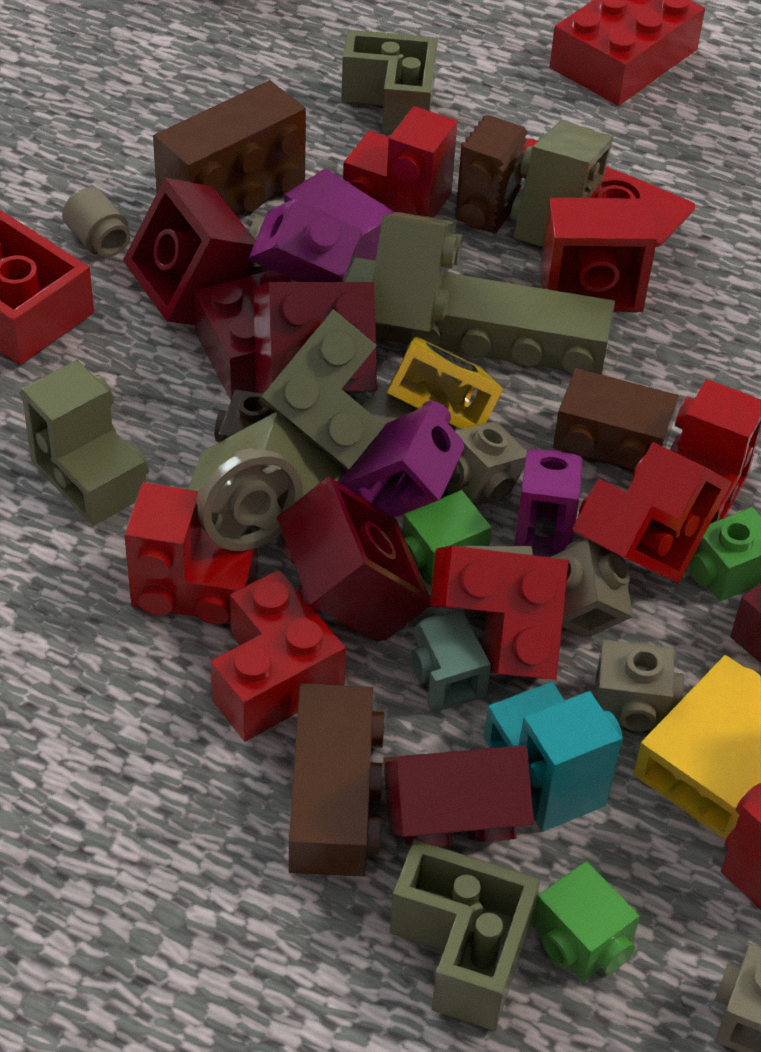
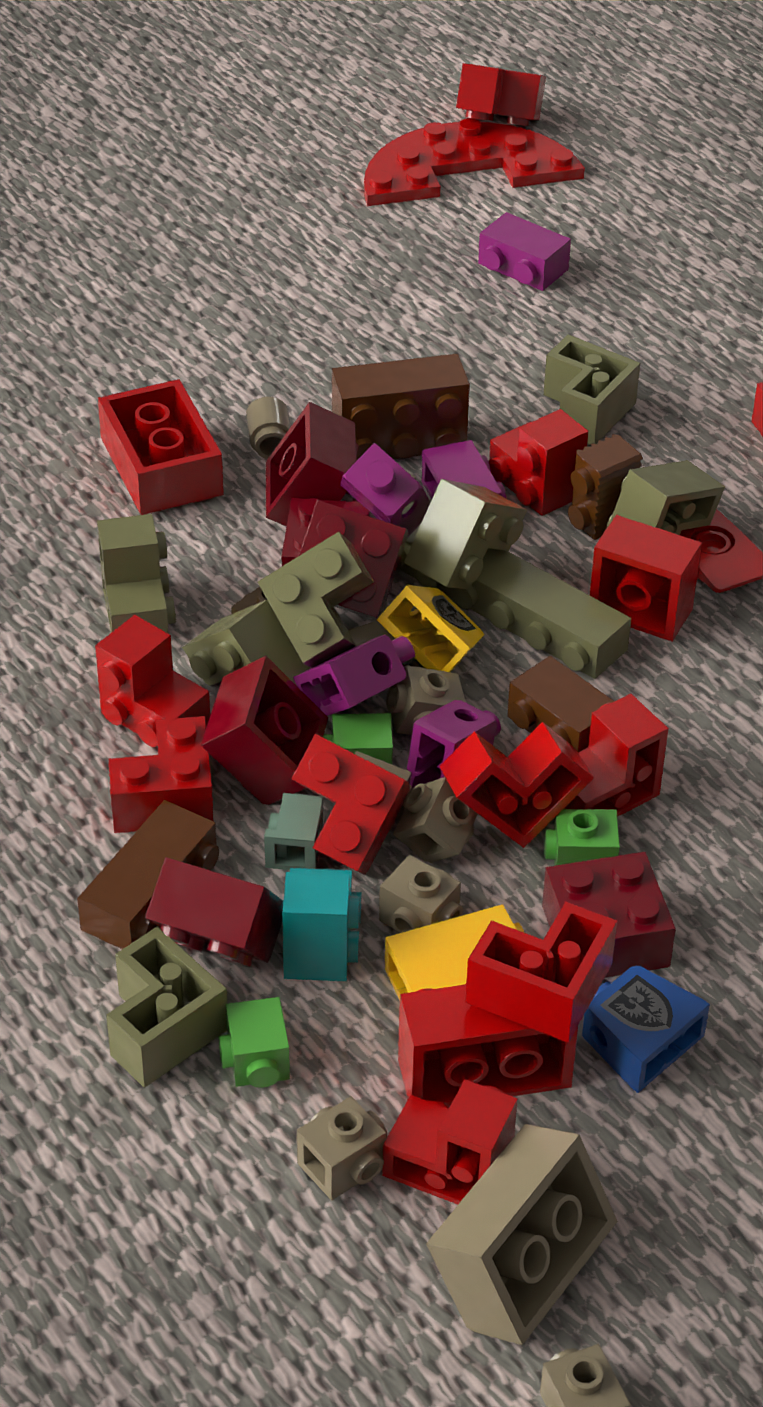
camera: 30 degrees right, 5 degrees down
(247, 497) = (202, 652): dark tan wheel -> none

